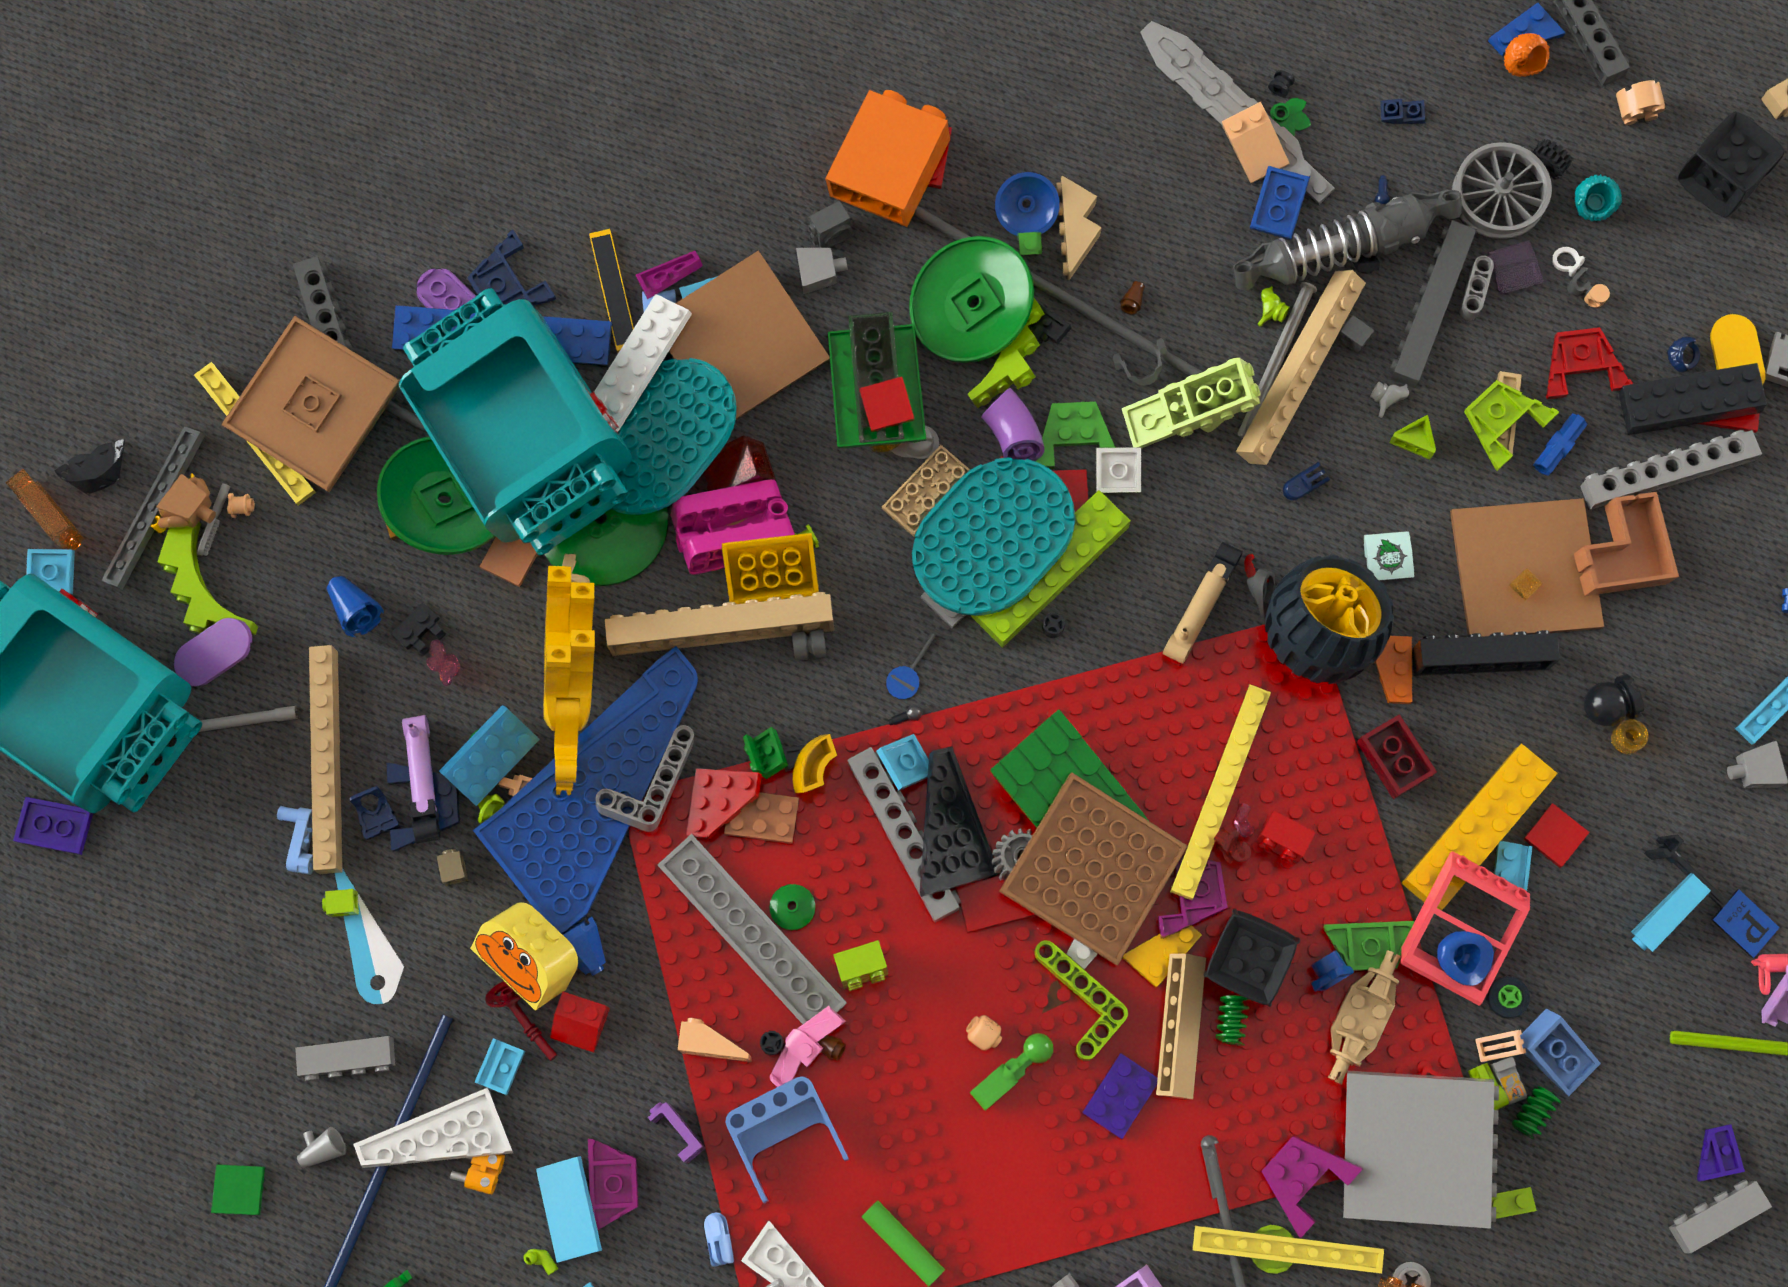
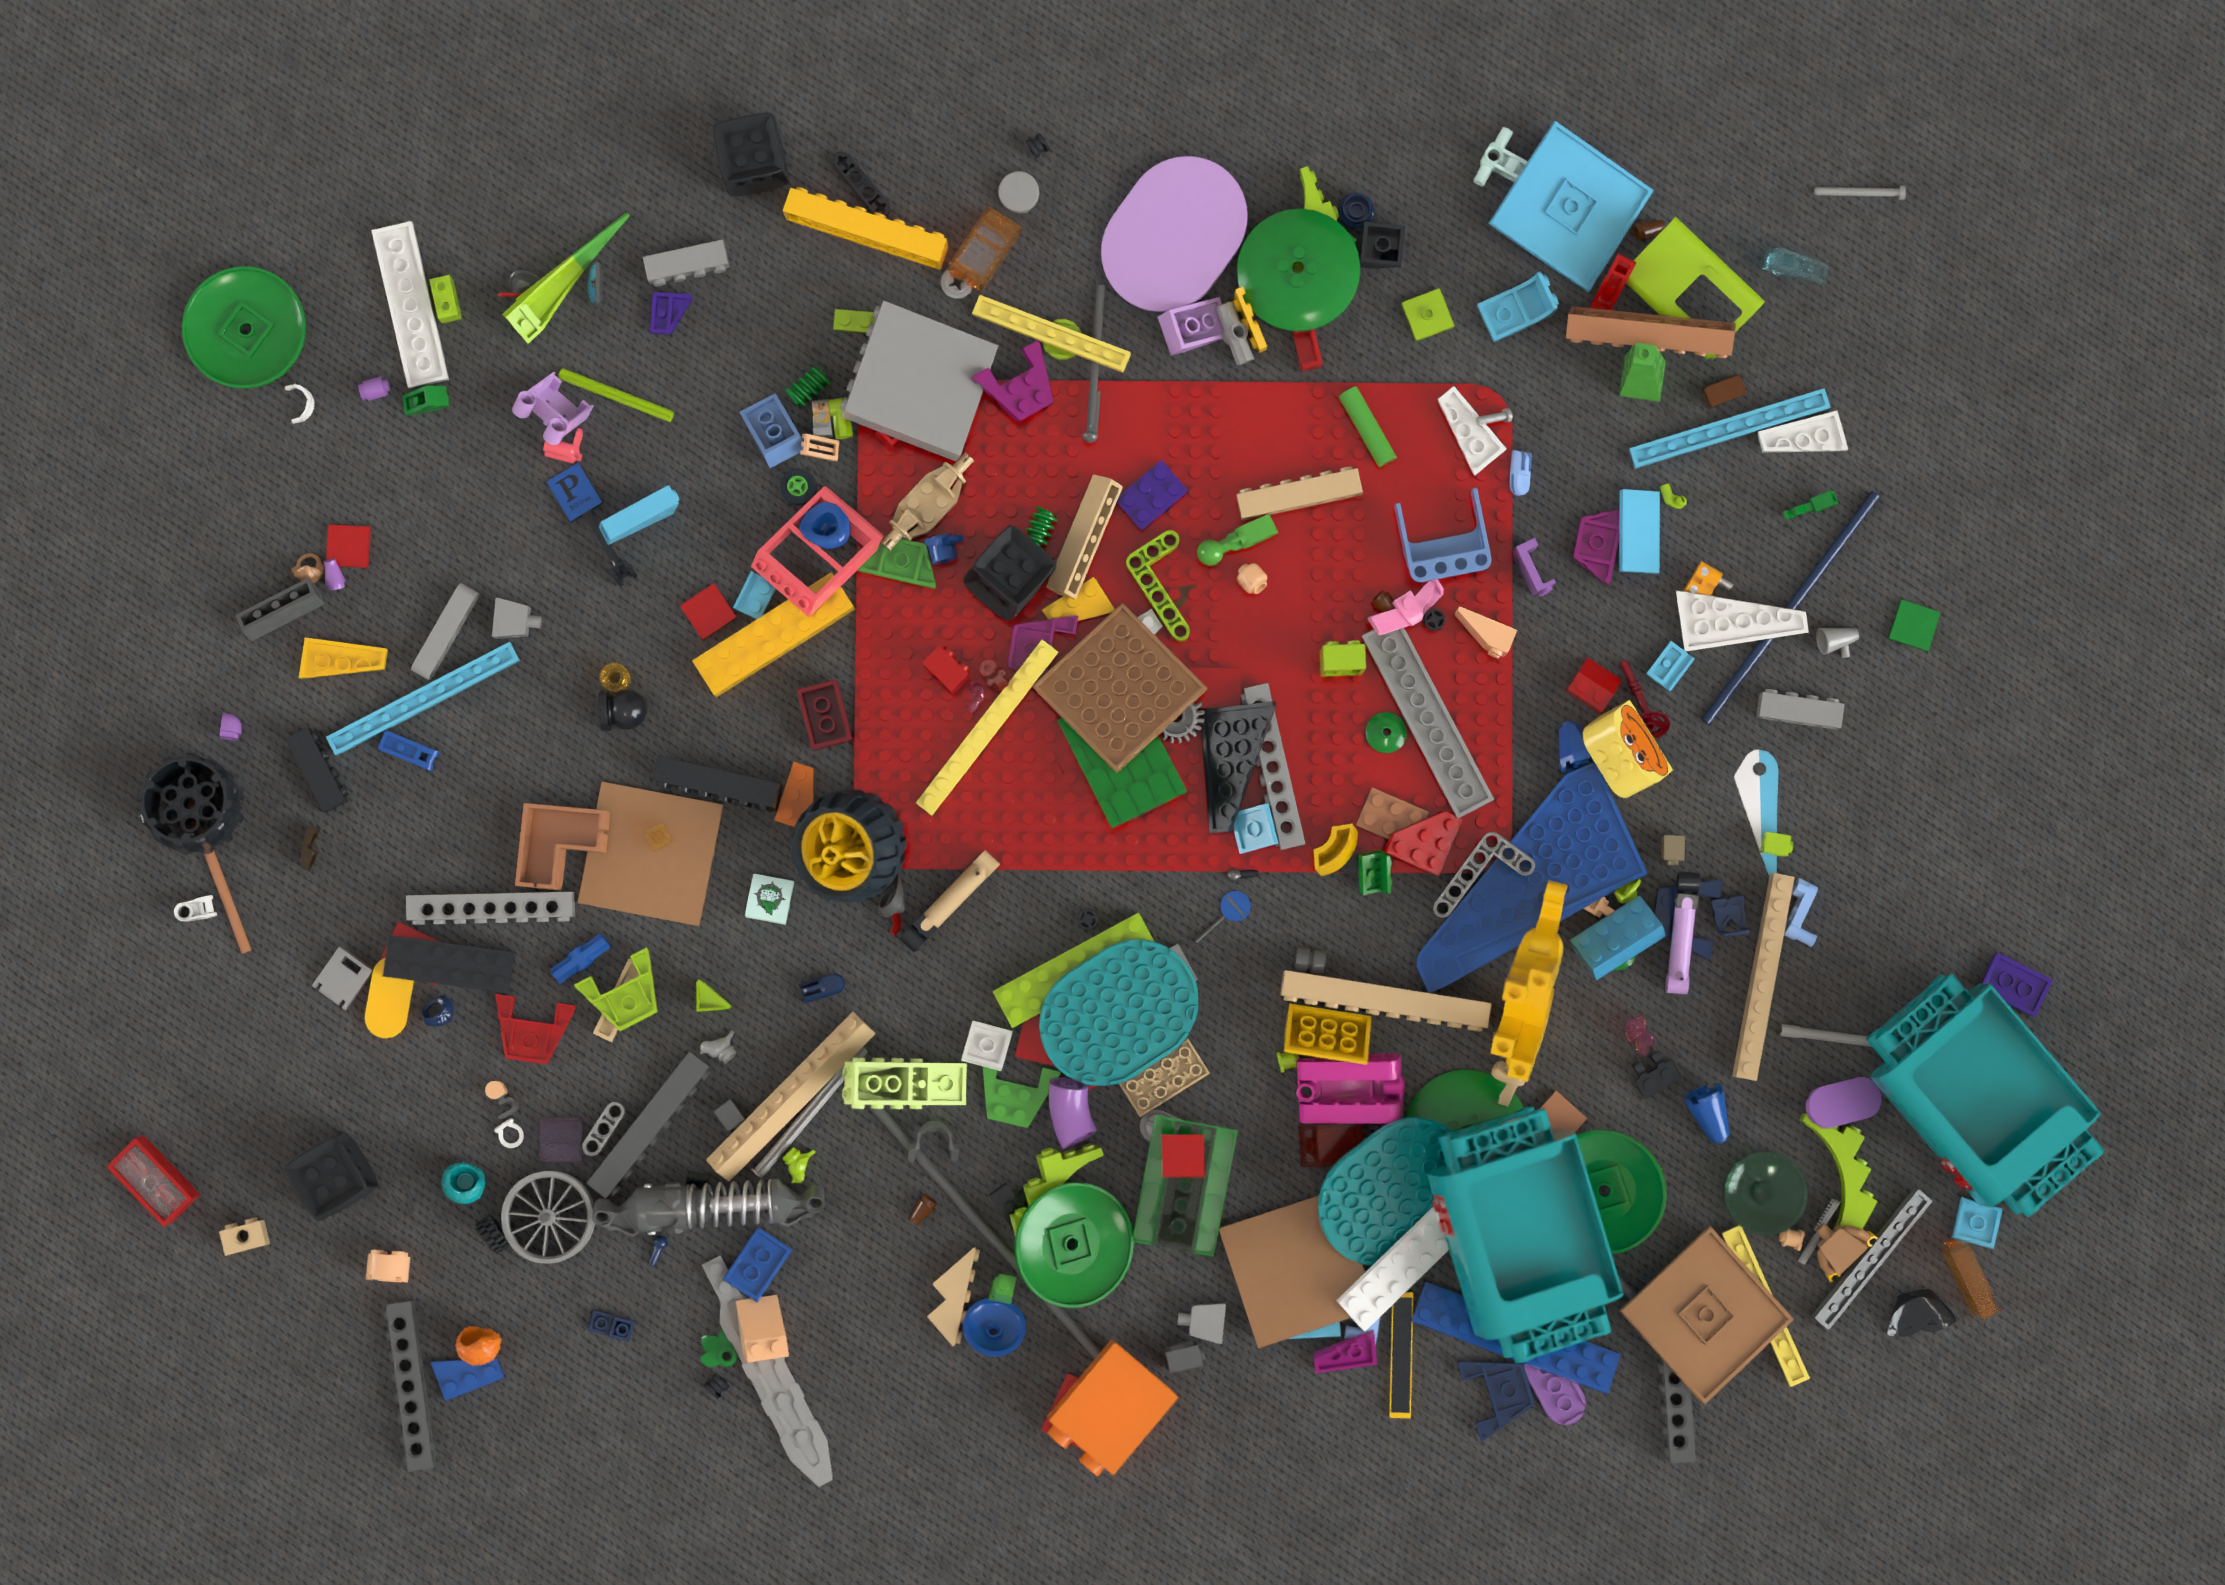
camera: 170 degrees left, 10 degrees up
(276, 539) = (1765, 1193): none -> clear green dish
(958, 1142) = (1299, 494): none -> tan brick

